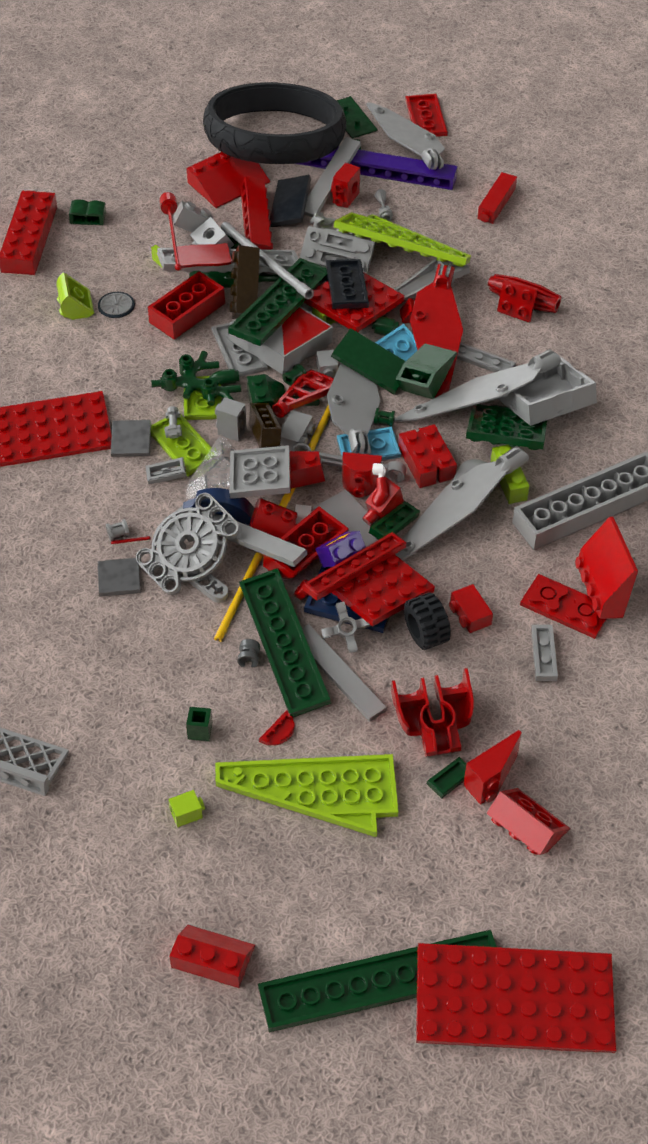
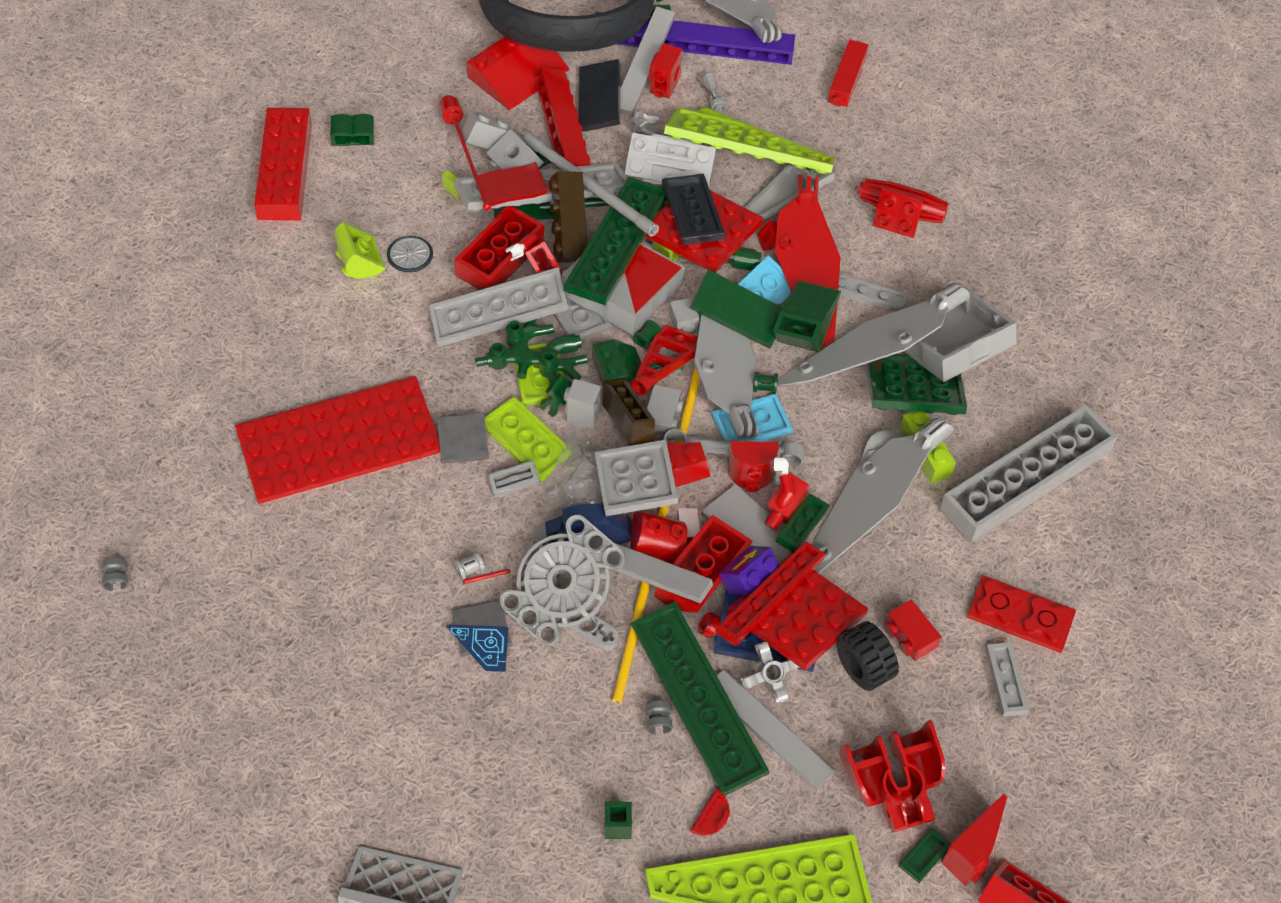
camera: 10 degrees left, 5 degrees up
(118, 588) = (485, 644): none -> dark blue sticker
(171, 344) = (498, 306): none -> light grey plate
(173, 430) = (514, 423): light grey bar -> none
(210, 411) = (556, 391): none -> dark green plate
(216, 311) = (536, 251): none -> red torso
(426, 453) = (826, 431): red piece -> none
(607, 570) = (1069, 569): red slope -> none

